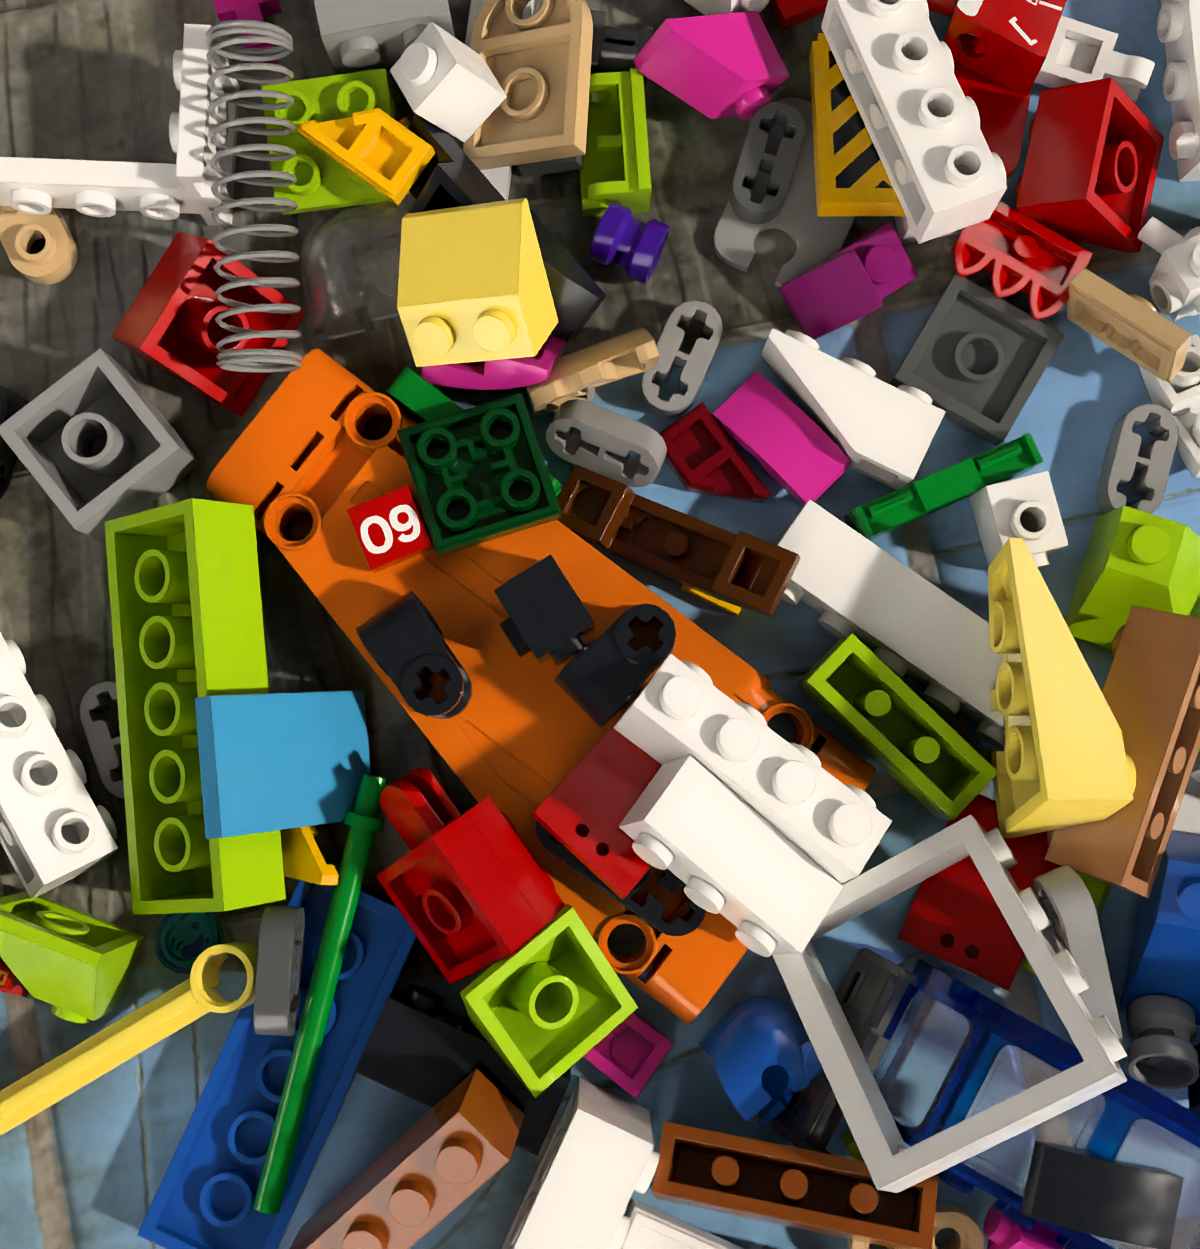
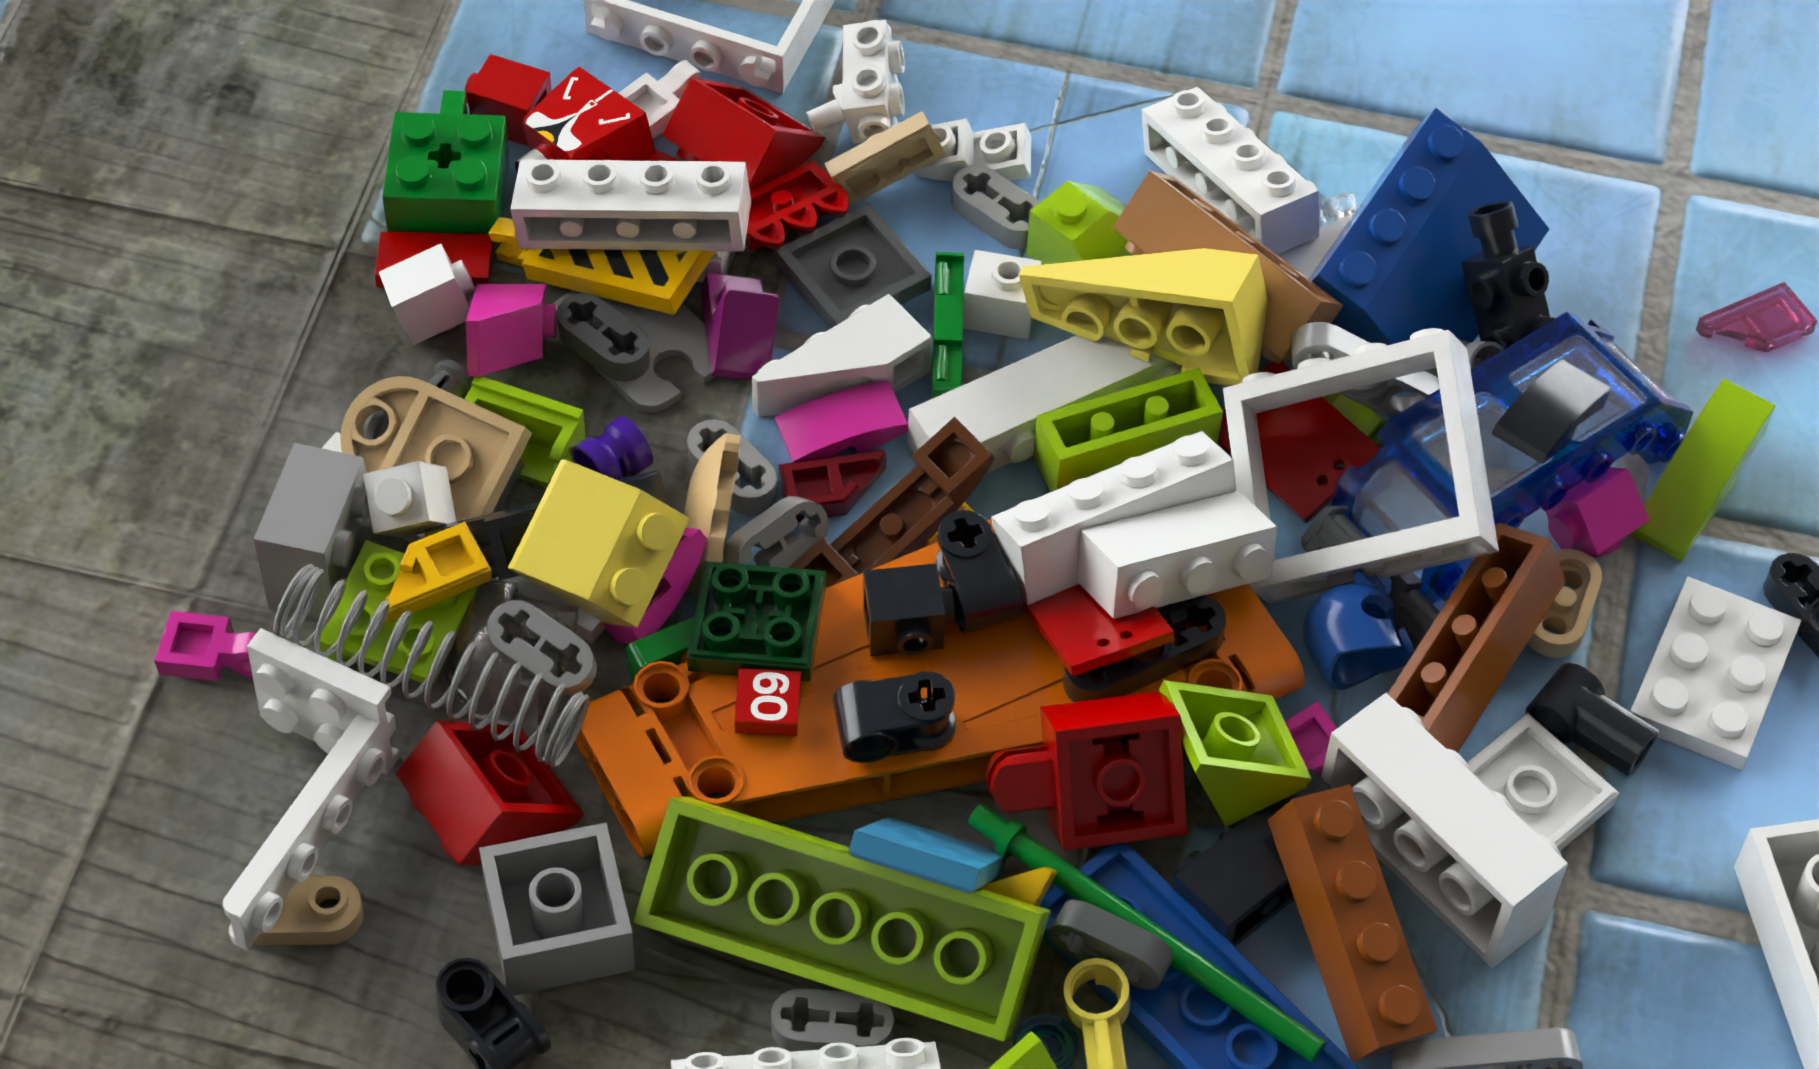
camera: 65 degrees left, 30 degrees down
(340, 291) = (549, 636): none -> light grey beam

